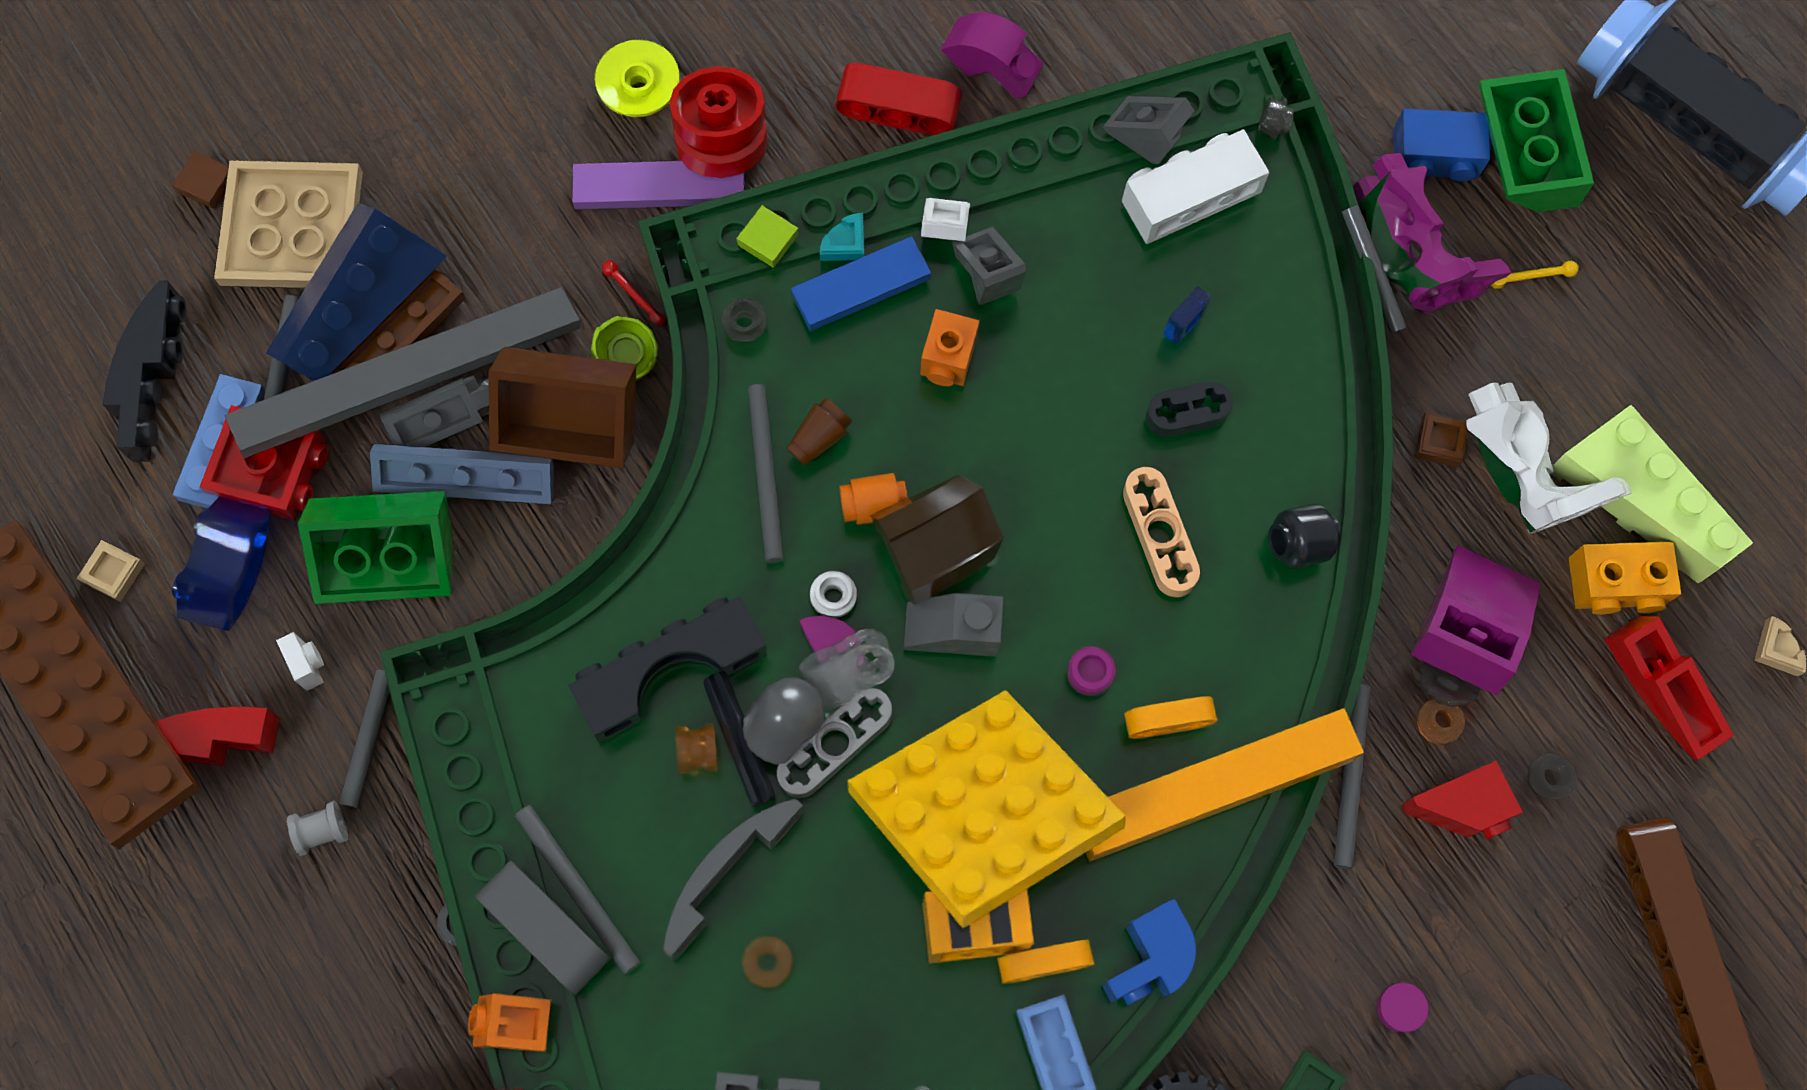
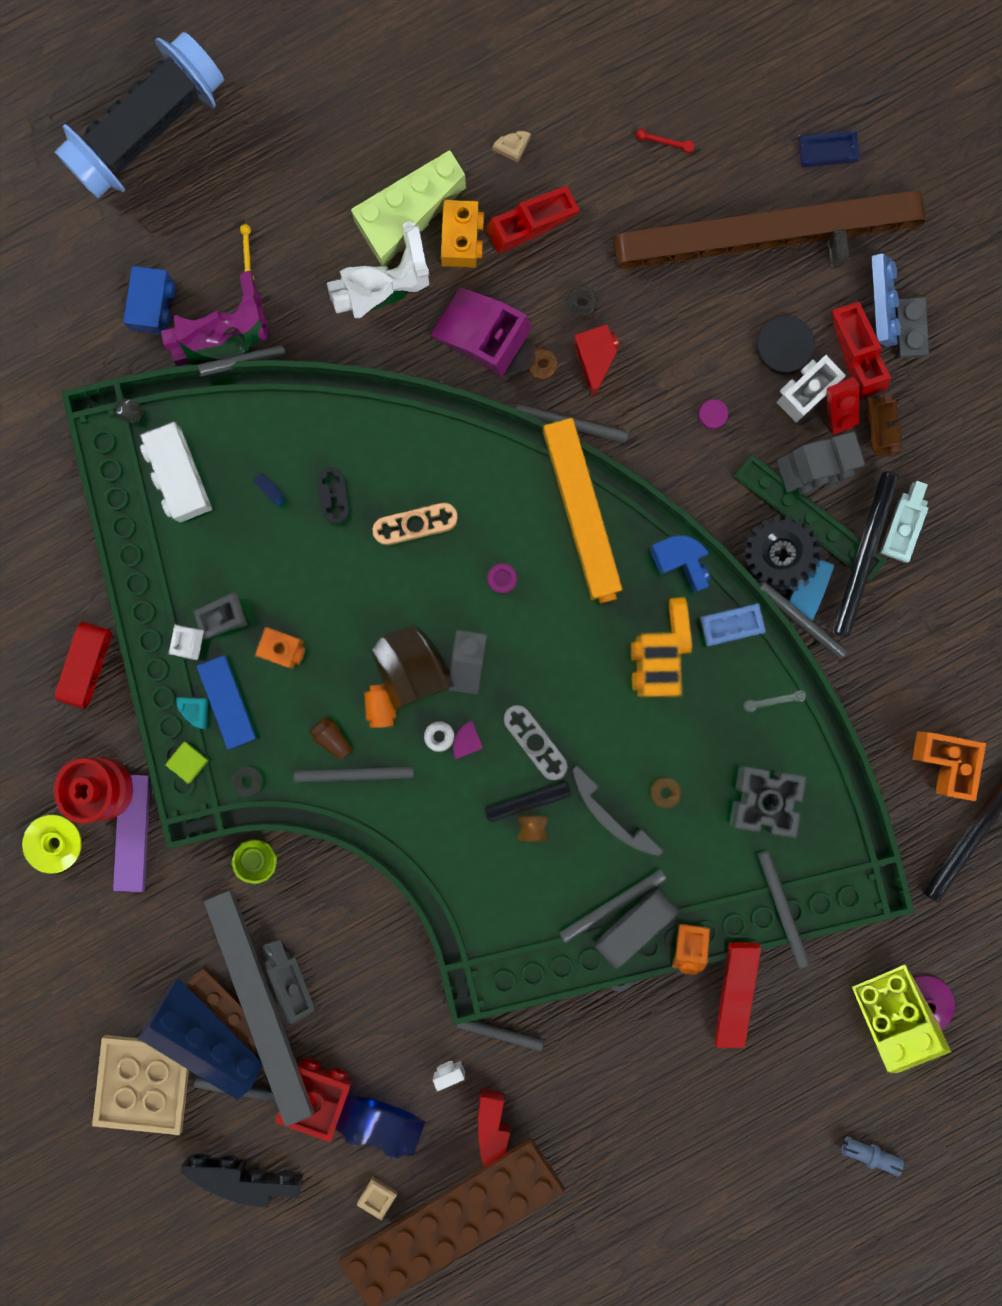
camera: 85 degrees left, 15 degrees up
(202, 180) = (102, 1144): reddish brown tile -> none
(226, 393) = (264, 1124): medium blue plate -> none
(317, 828) = (556, 1064): light grey bush -> none
(377, 547) = (376, 1026): green slope -> none
(462, 473) = (331, 970): sand blue plate -> none
(562, 407) = (294, 904): reddish brown piece -> none
(611, 269) = (191, 868): red hinge -> none
(719, 638) = (496, 878): black arch -> none
(783, 719) = (521, 774): dark grey hair -> none
(843, 669) = (491, 733): clear piece -> none
(985, 807) = (590, 654): yellow plate -> none
(993, 45) = (50, 597): magenta brick -> none
(1149, 124) = (127, 498): dark grey slope -> none
(1170, 717) = (537, 532): light orange beam -> none
(1304, 536) = (427, 433): black head -> none
(1442, 439) = (357, 333): reddish brown tile -> none
(1537, 140) = (154, 236): green slope -> none

